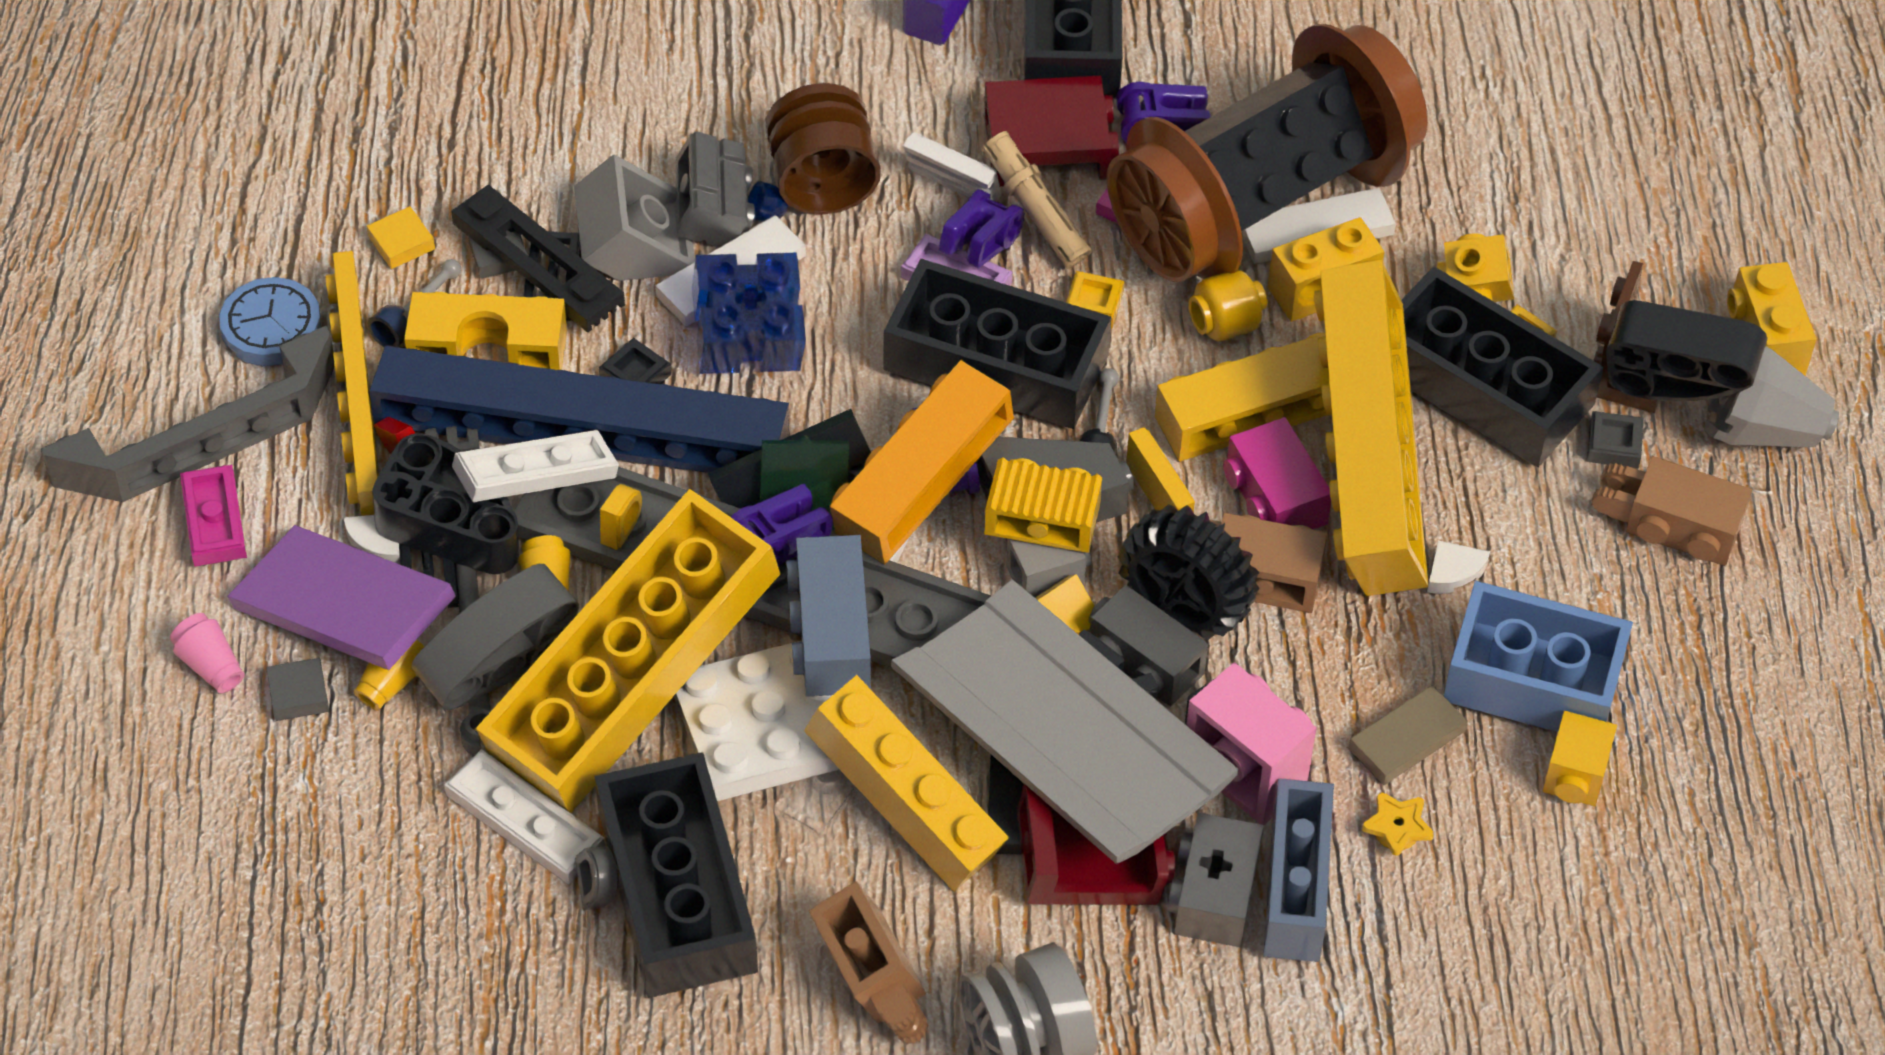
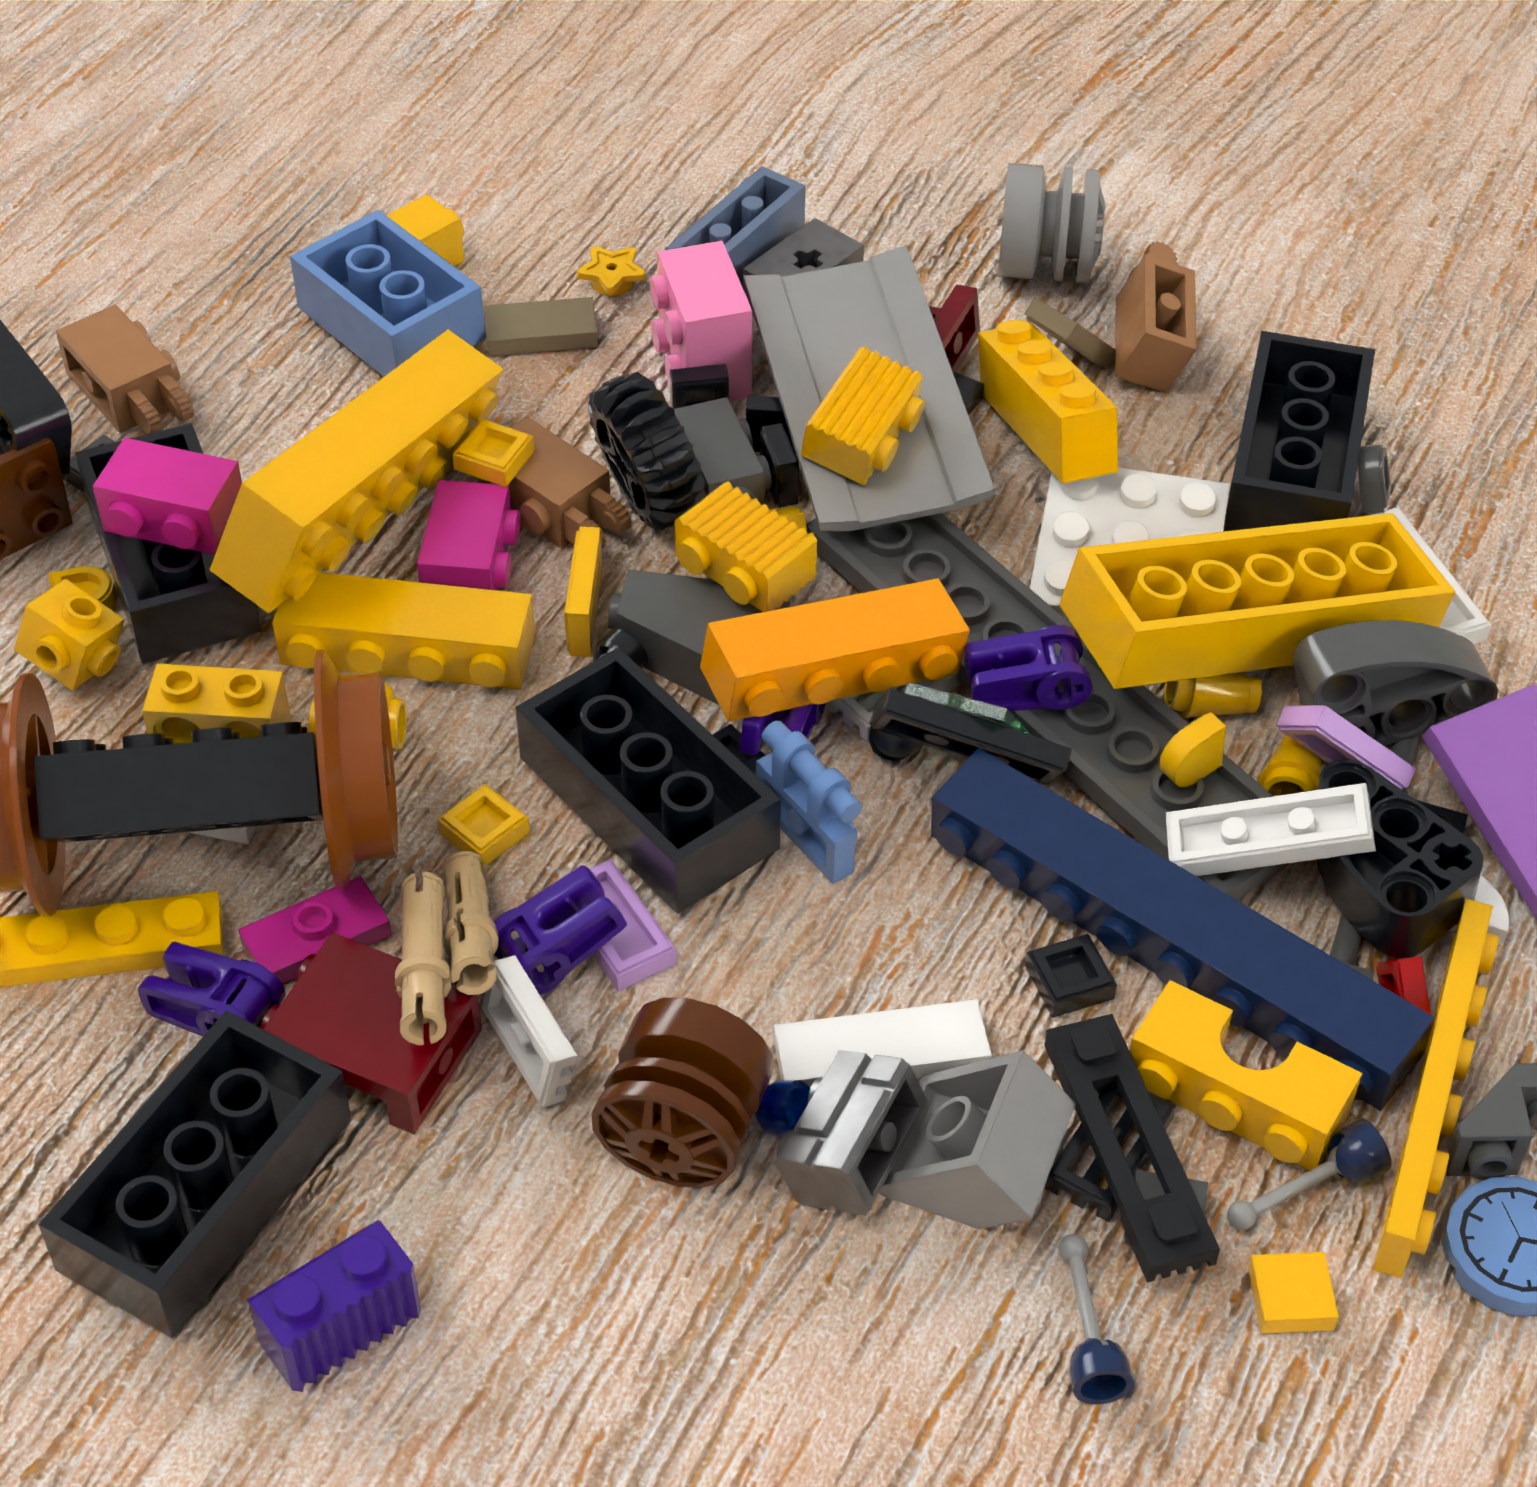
camera: 150 degrees left, 5 degrees down
(497, 145) = (1097, 1366): none -> dark blue hinge
(519, 551) = (1337, 739): none -> lavender tile
(748, 313) = (909, 934): clear blue brick -> none
(829, 613) = (1027, 553): sand blue brick -> none
(873, 372) = (814, 801): none -> medium blue plate
(934, 899) = (1070, 333): none -> dark tan tile
(1024, 127) = (423, 975): none -> tan pin
(1030, 652) = (863, 416): none -> yellow brick
(1306, 524) = (493, 452): none -> yellow tile
(1479, 331) = (167, 495): none -> dark pink piece

